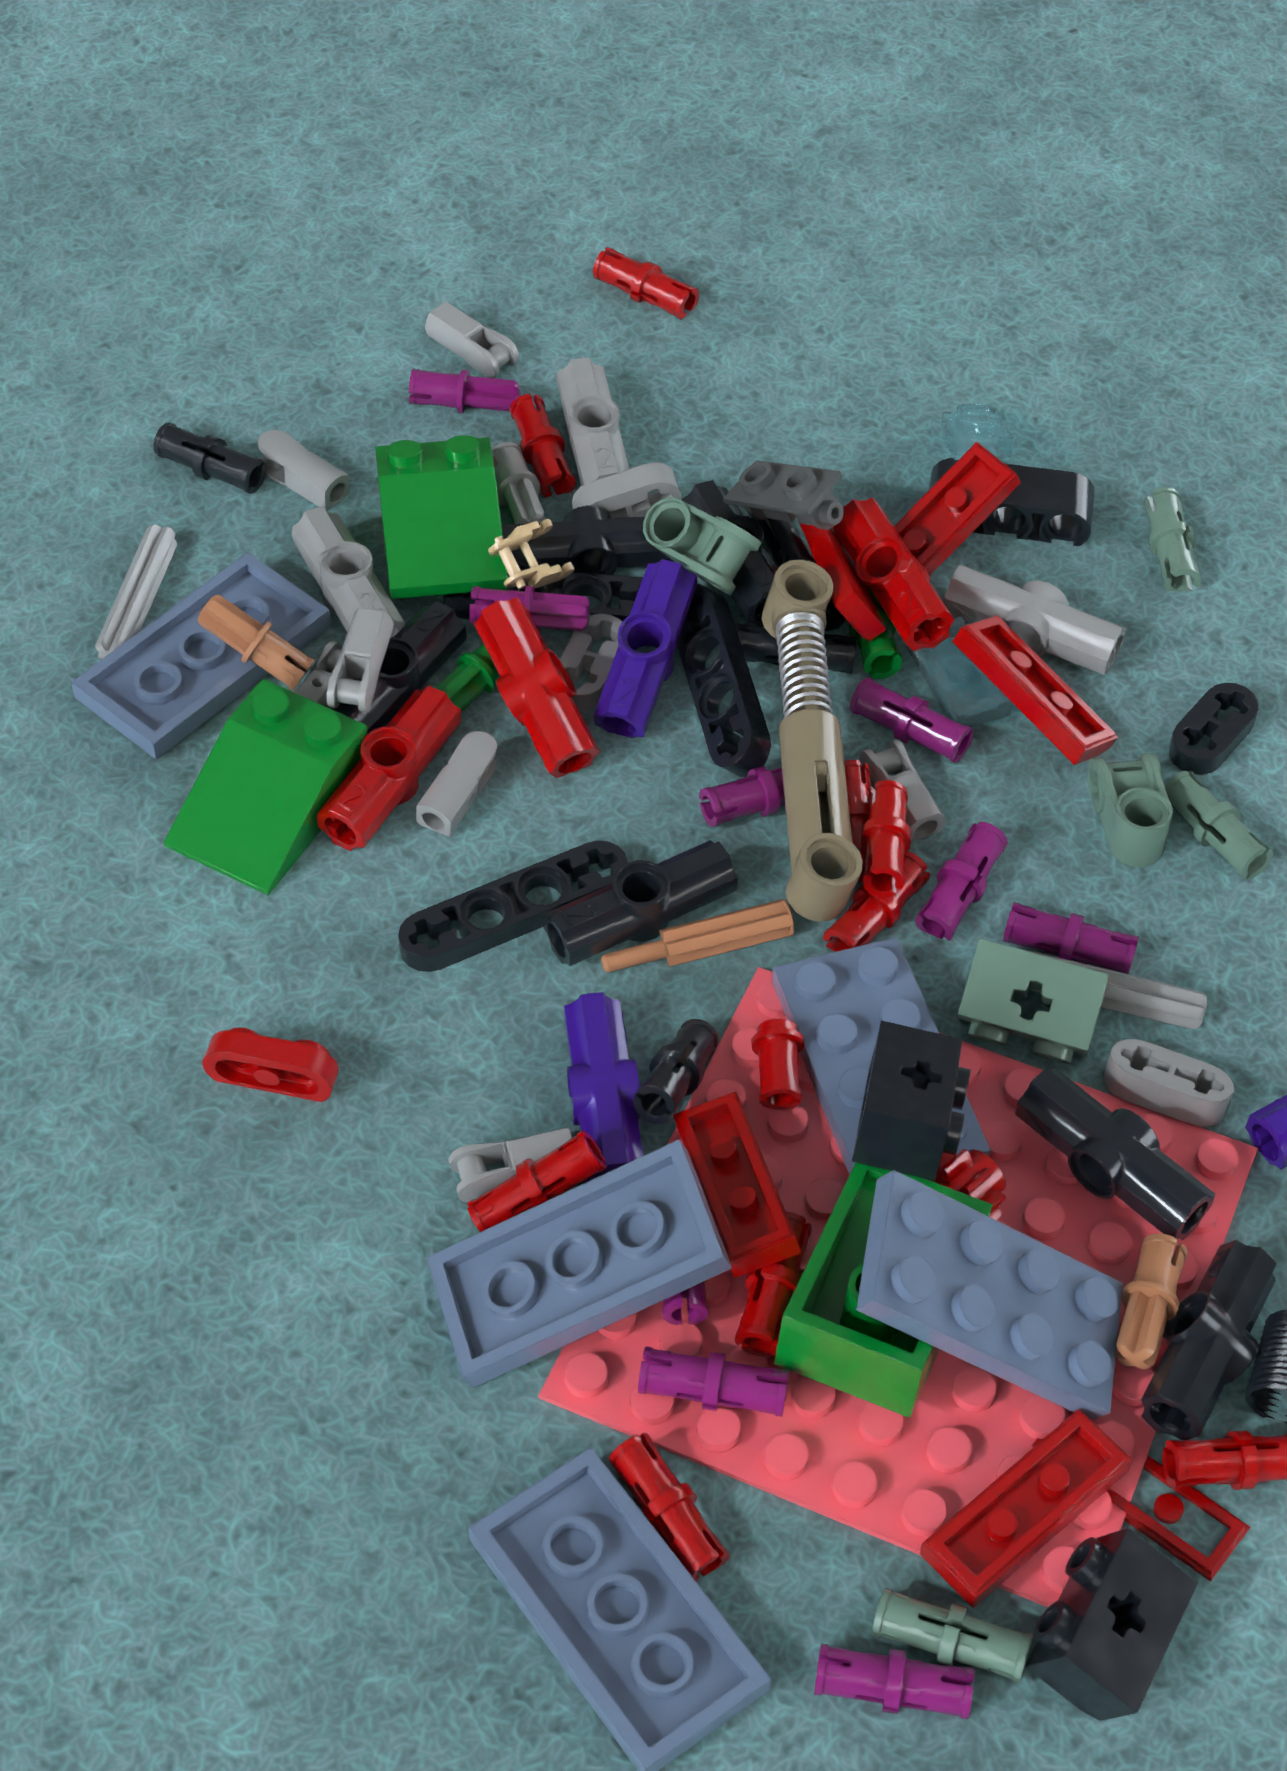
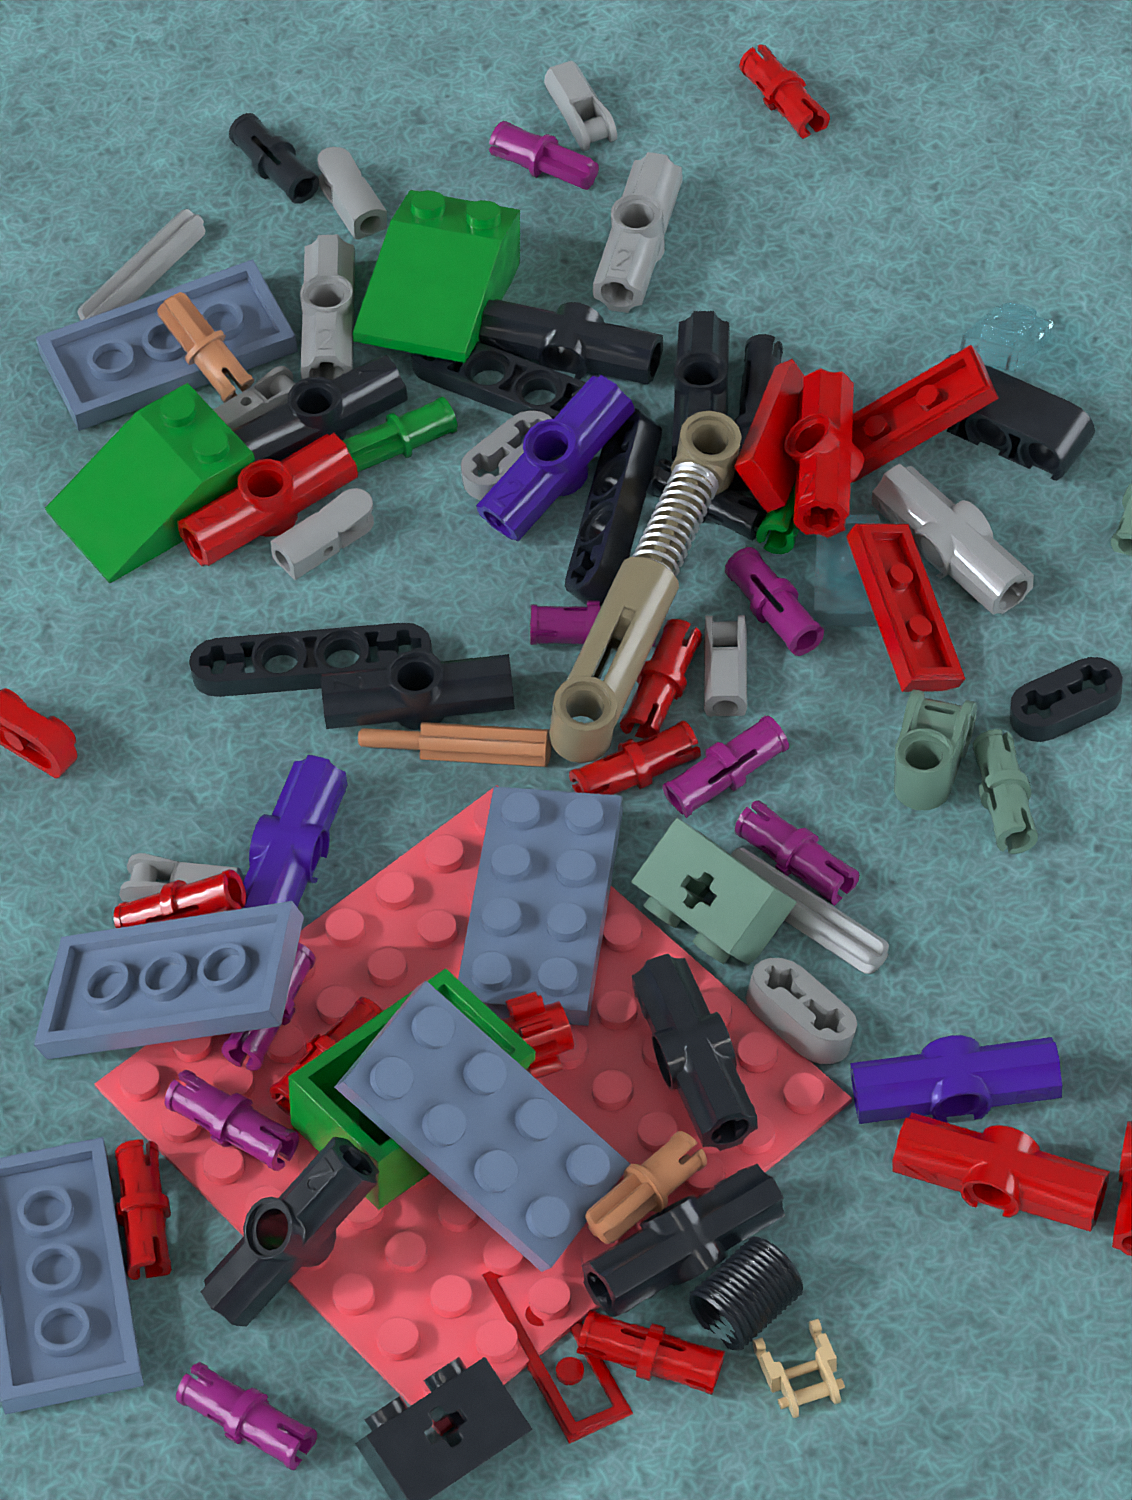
camera: 30 degrees right, 0 degrees up
(360, 659) = (279, 389): light grey bar -> none
(516, 484) = (538, 263): light grey axle -> none
(536, 687) = (433, 464): red piece -> none
(537, 574) = (492, 356): tan piece -> none
(542, 445) = (584, 230): red pin -> none
(546, 609) = (470, 388): magenta axle -> none
(628, 491) = (635, 303): light grey beam -> none
(665, 1088) = (356, 849): black pin -> none
(705, 547) = (647, 369): sand green piece -> none
(737, 1184) = (341, 961): red tile -> none
(778, 1049) = (452, 861): red pin -> none
(788, 492) = (758, 344): dark grey hinge -> none
(834, 1512) = (290, 1231): none -> black piece
(885, 838) = (663, 702): red pin -> none
(910, 1101) = (510, 935): black brick -> none
(952, 1635) = (311, 1396): sand green pin -> none
(1025, 1507) = (435, 1318): red tile -> none

